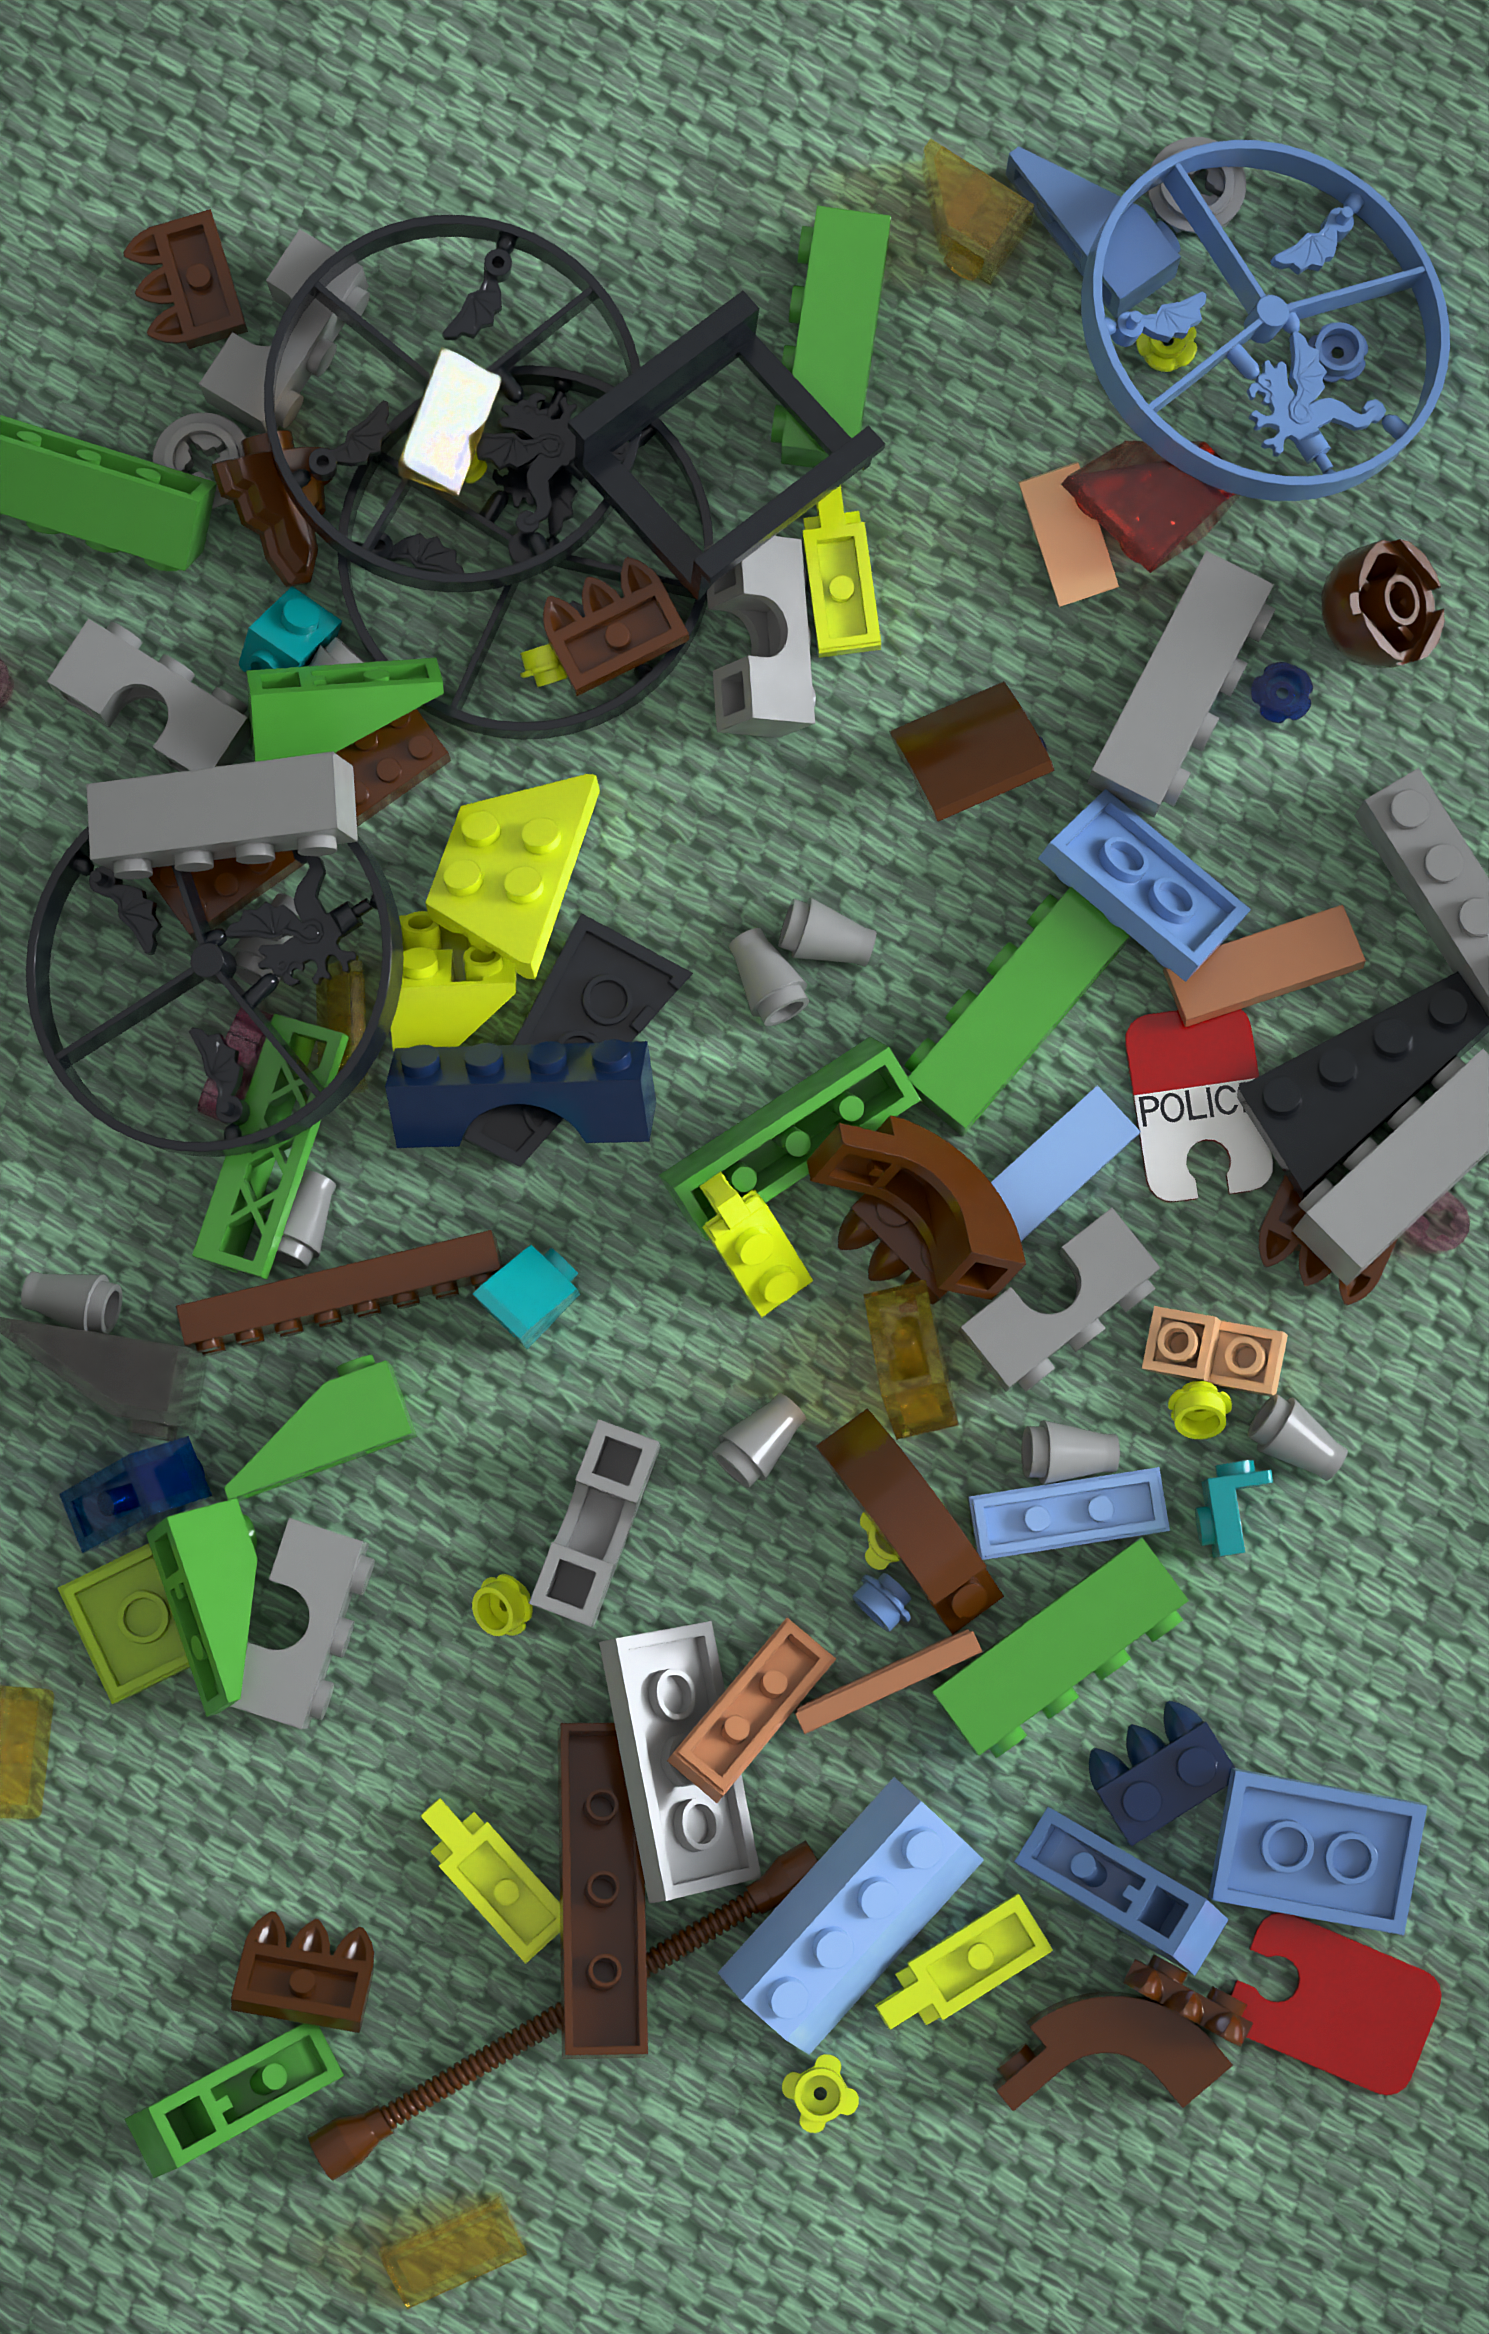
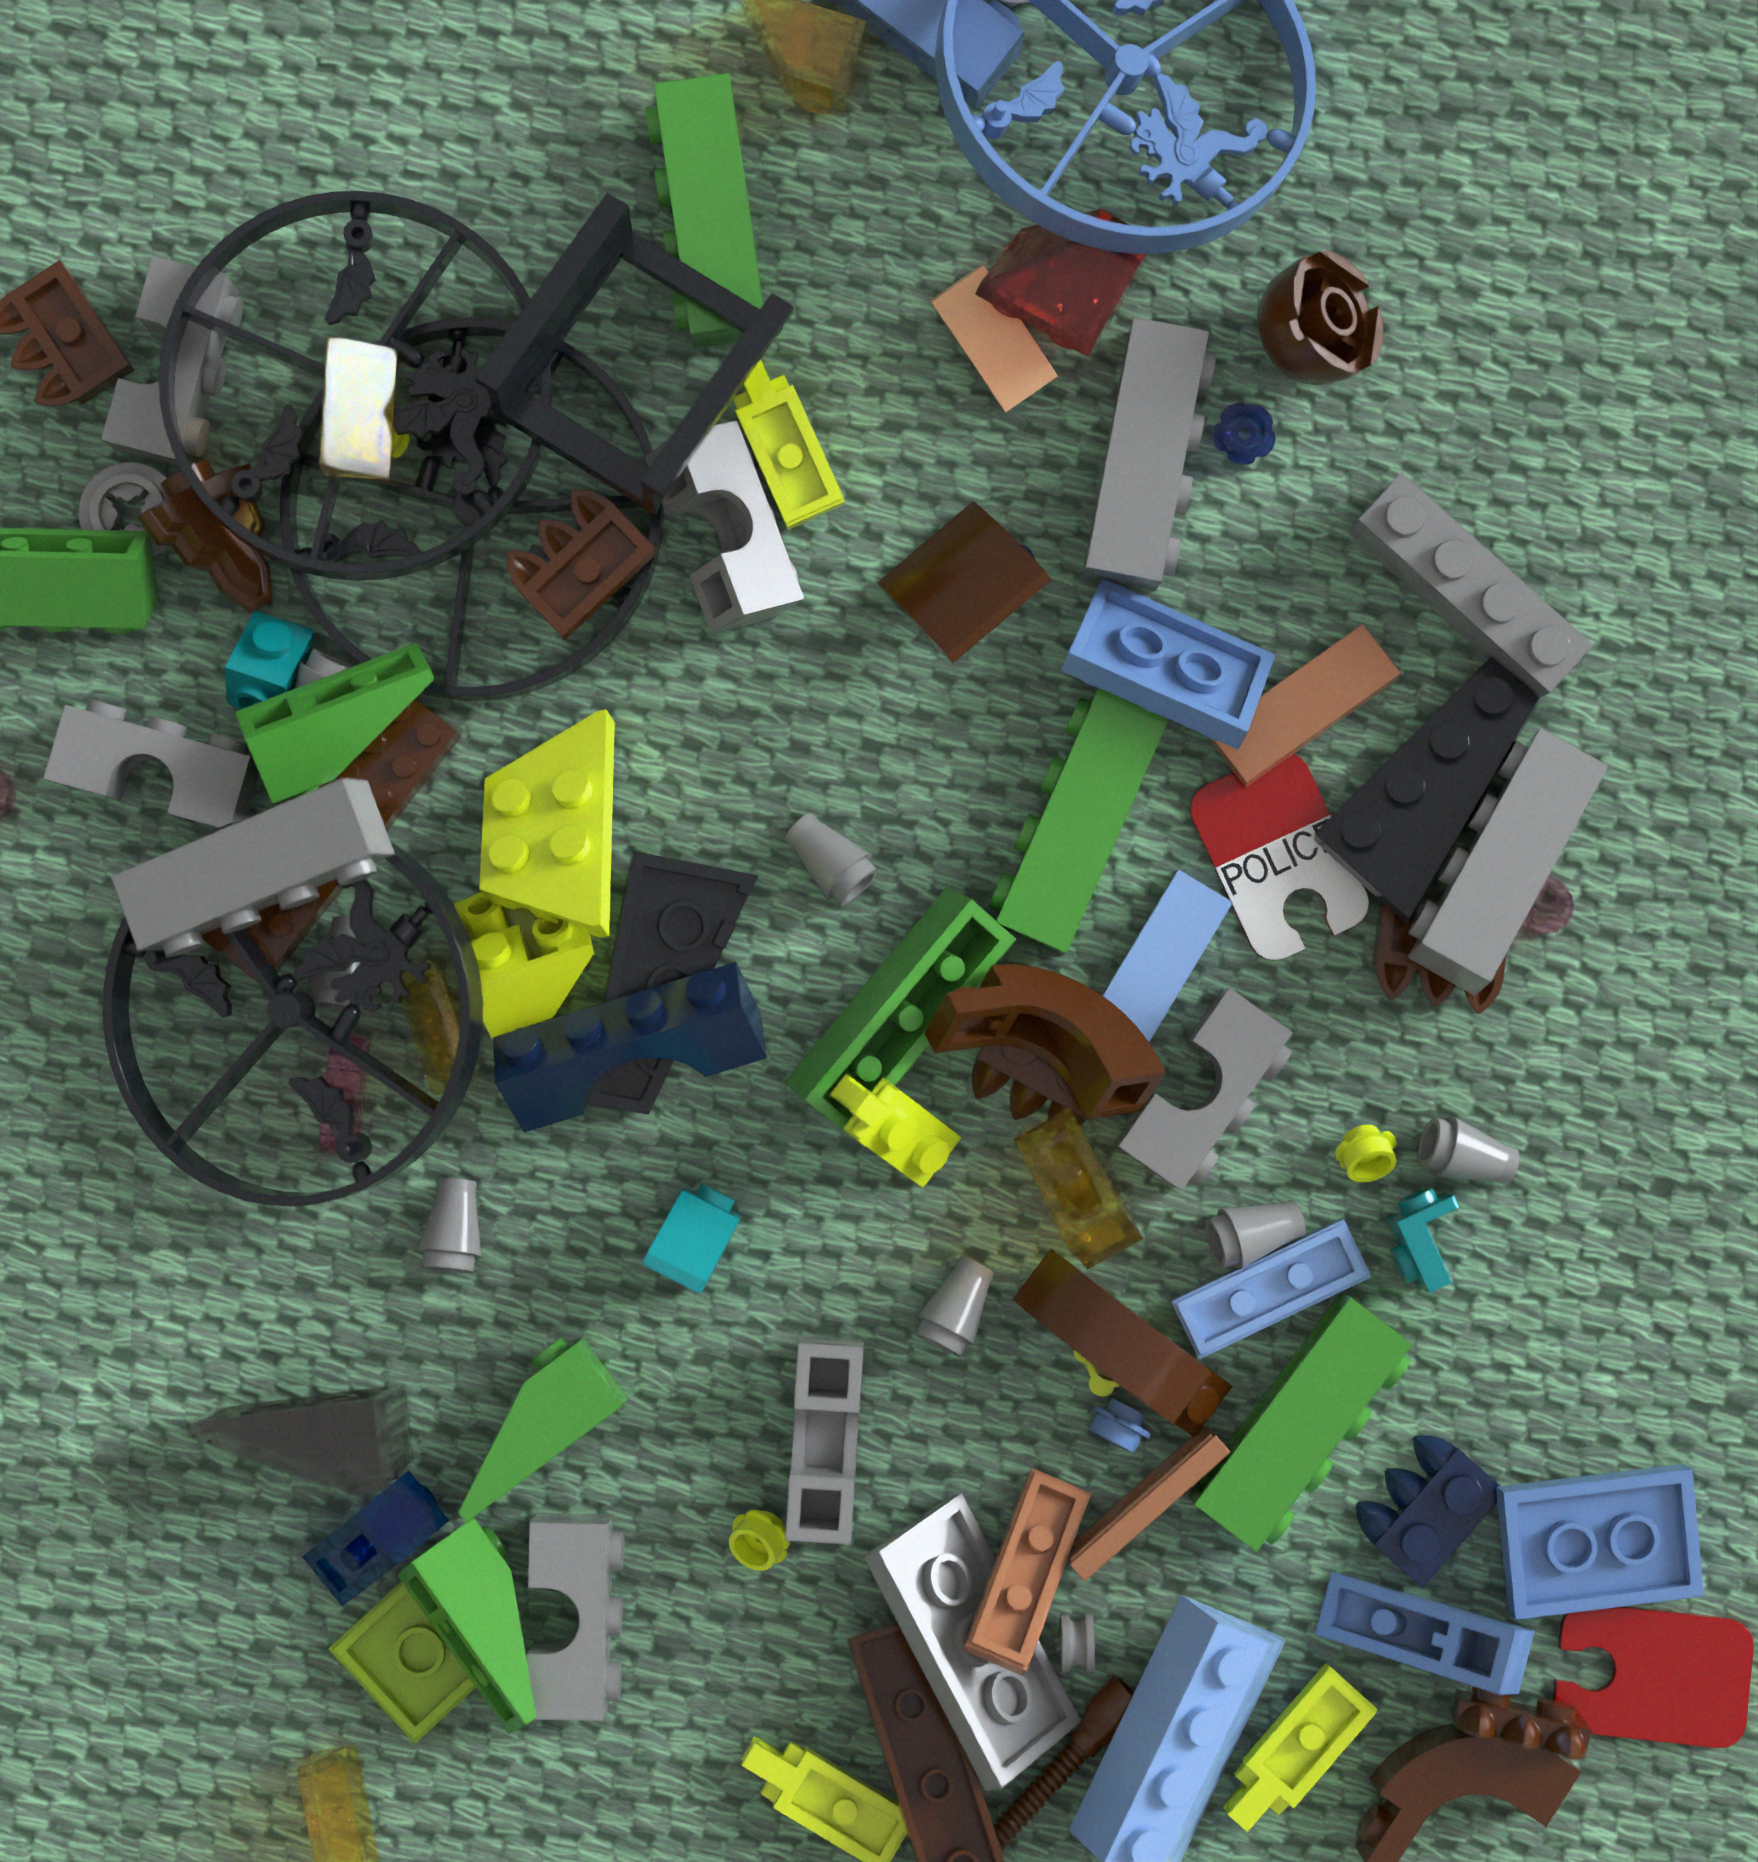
camera: 20 degrees left, 5 degrees up
(74, 1300) = (261, 1369): light grey cone -> none
(244, 1177) = (385, 1209): bright green fence -> none
(339, 1291) = (501, 1295): reddish brown piece -> none
(542, 665) = (521, 617): neon yellow plate -> none
(779, 1798) = (1076, 1643): none -> light grey bush
(824, 934) = (874, 800): light grey cone -> none
(1171, 357) = (1040, 134): neon yellow plate -> none
(1214, 1351) = (1364, 1092): light nougat slope -> none
(1350, 342) = (1213, 69): medium blue plate -> none

